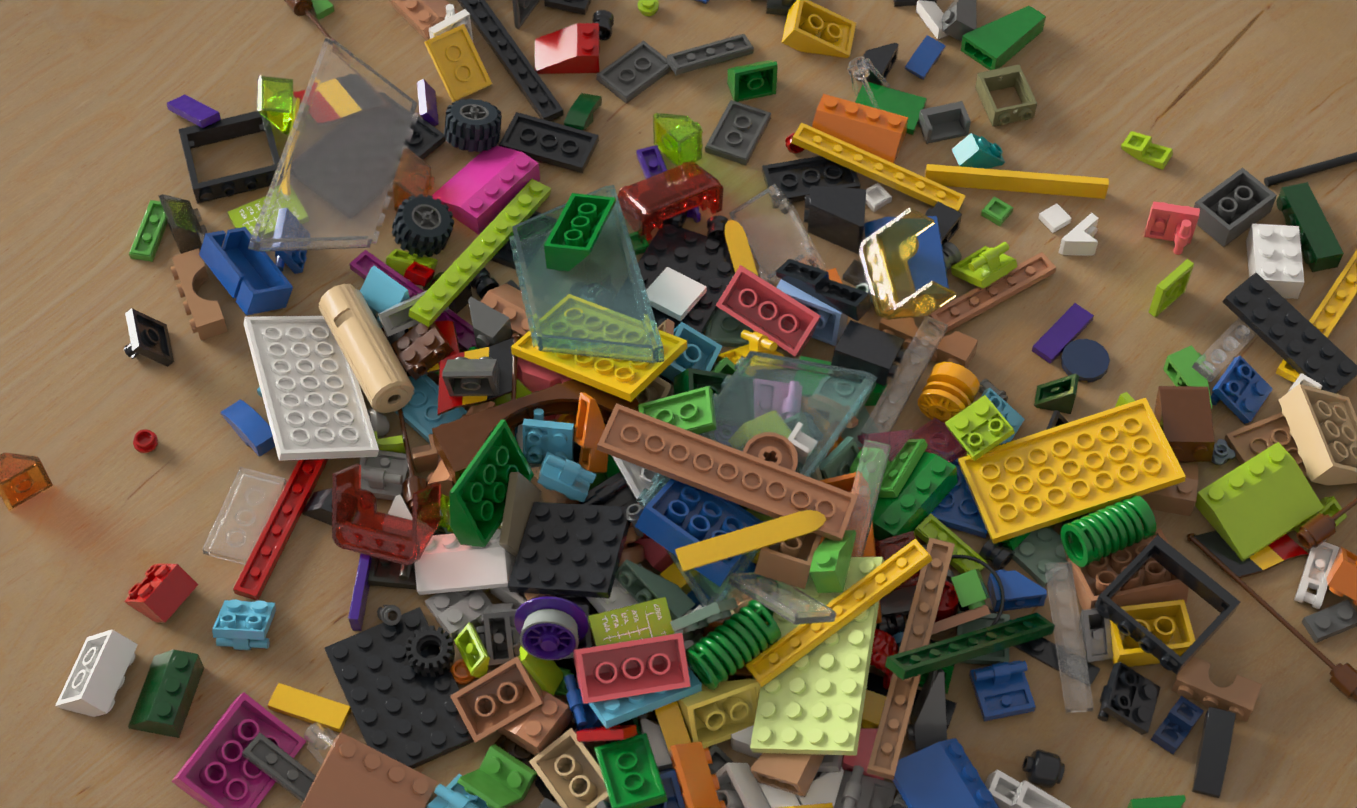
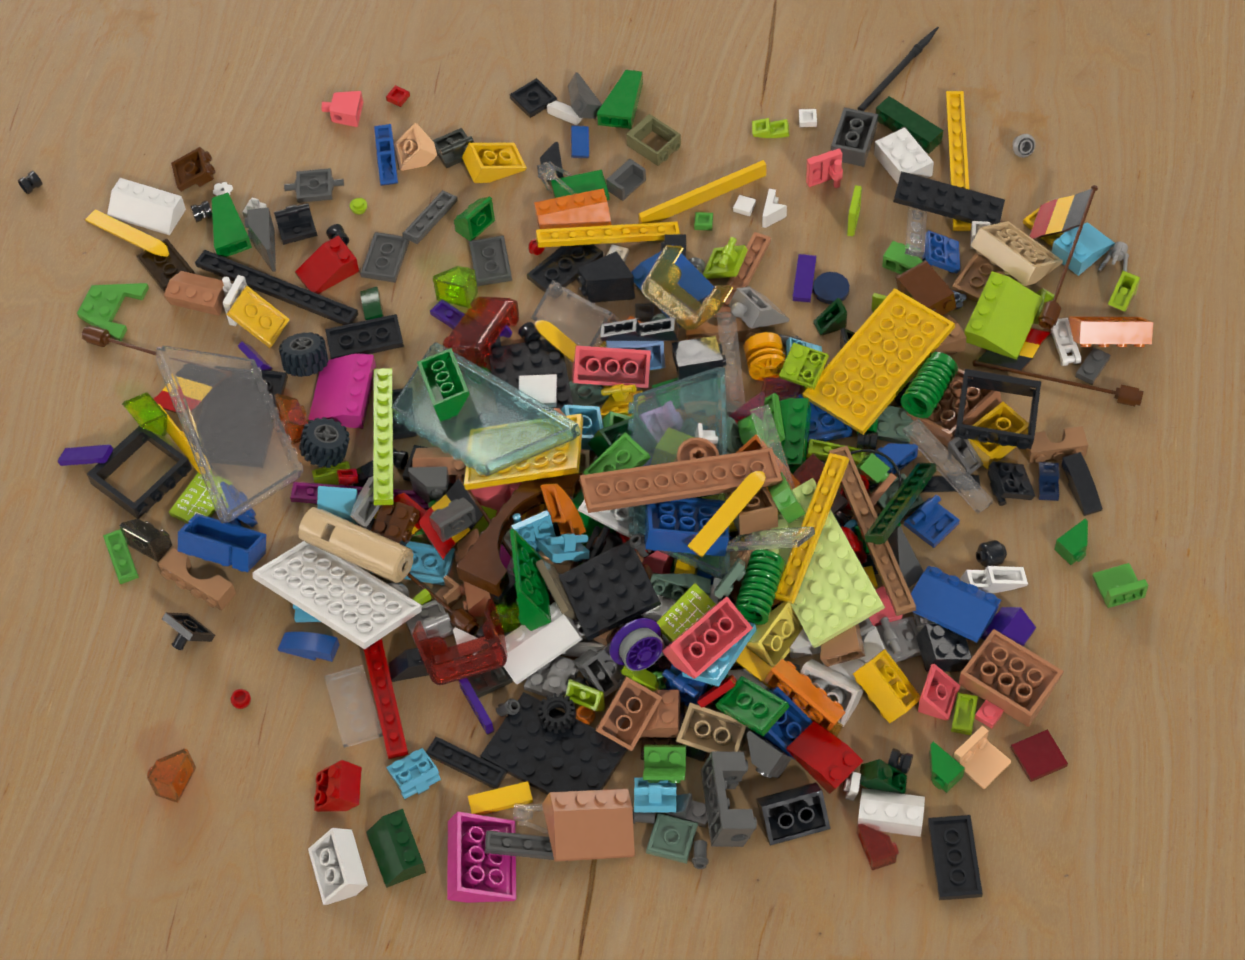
camera: 30 degrees left, 0 degrees up
(306, 647) = (466, 763): none -> black tile
(976, 335) = (755, 308): none -> light grey slope
(978, 153) = (664, 188): teal slope -> none
(1197, 159) = (807, 118): none -> white plate

